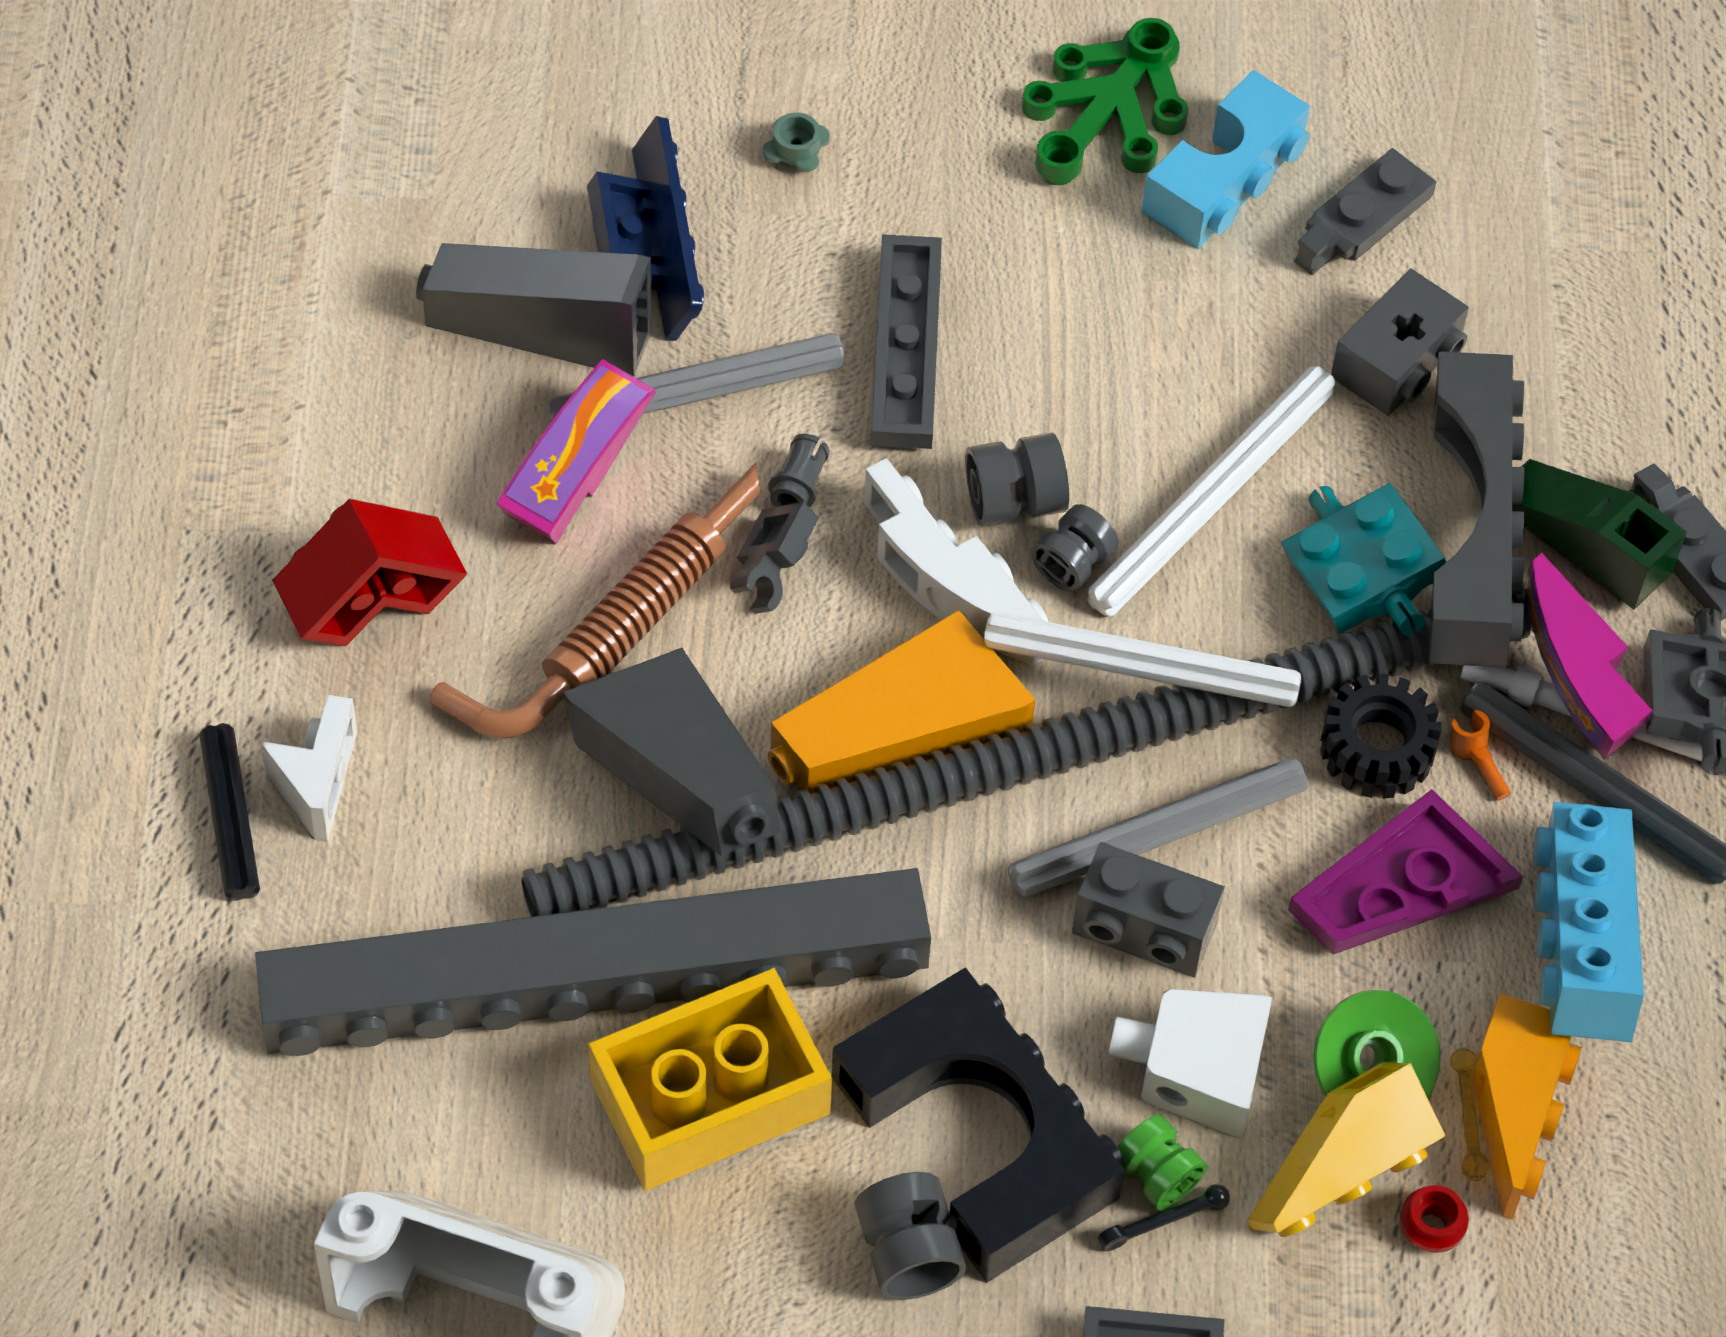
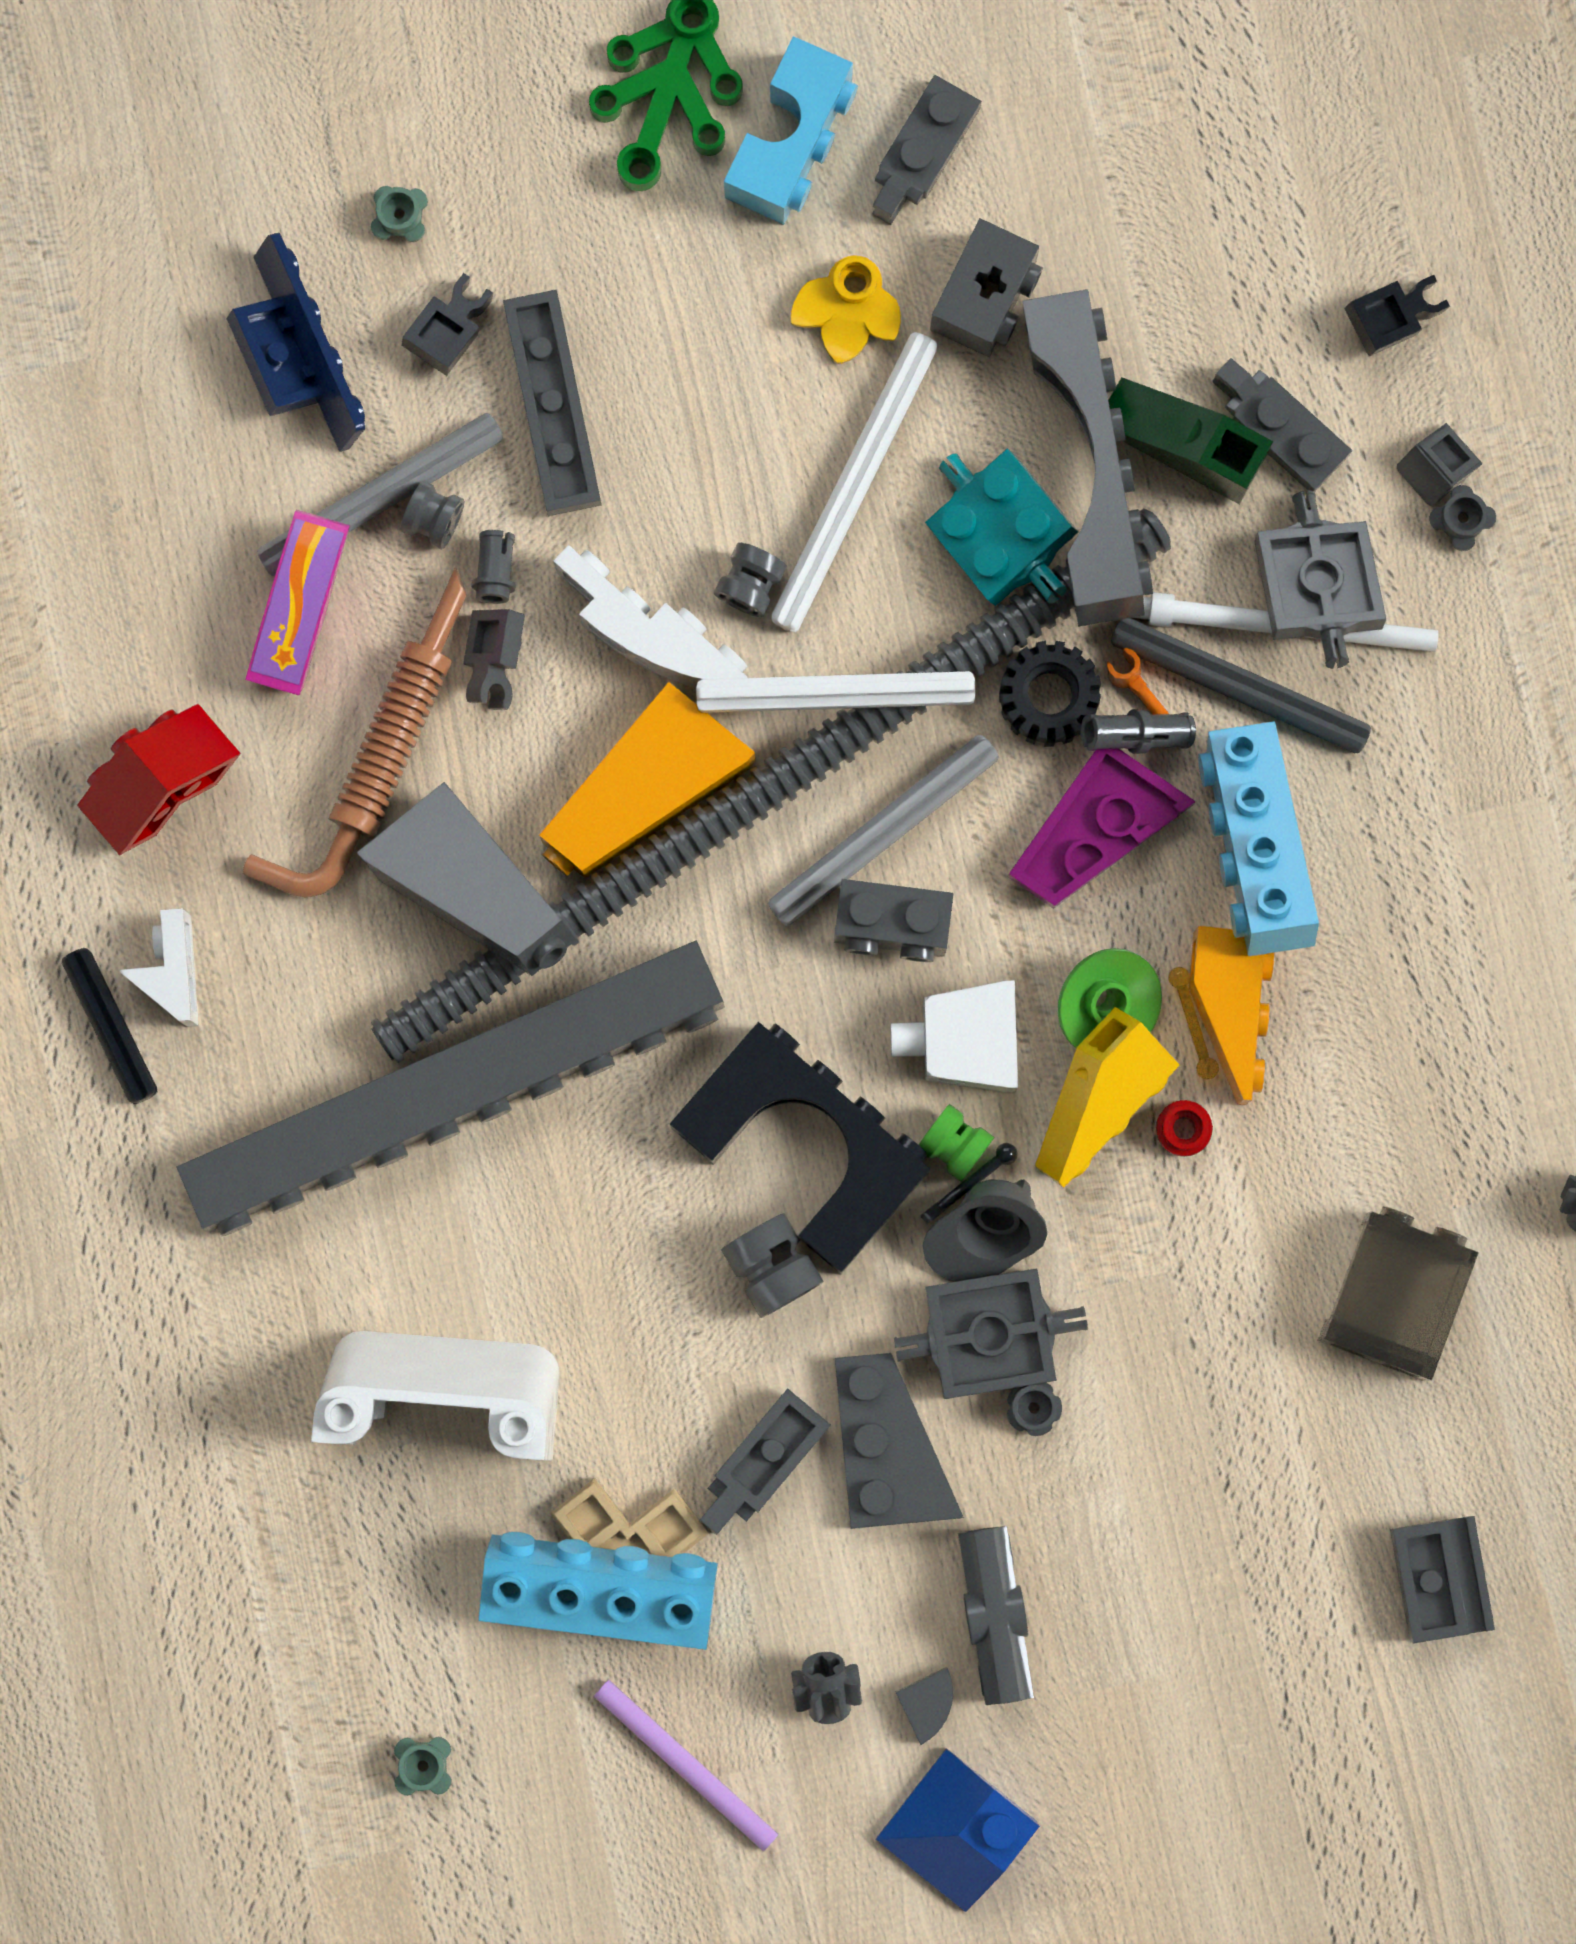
camera: 10 degrees left, 25 degrees up
(543, 301) = (221, 458): dark grey slope -> none
(710, 1079) = (576, 1174): yellow brick -> none
(747, 408) = (432, 515): none -> dark grey wheel
(814, 252) = (443, 330): none -> black plate
(1017, 479) = (685, 527): dark grey wheel -> none
(1171, 1261) = (986, 1232): none -> dark grey piece
(1244, 338) = (846, 316): none -> yellow plate
(1438, 775) = (1138, 731): none -> dark grey pin
(1582, 659) = (1206, 590): dark pink slope -> none

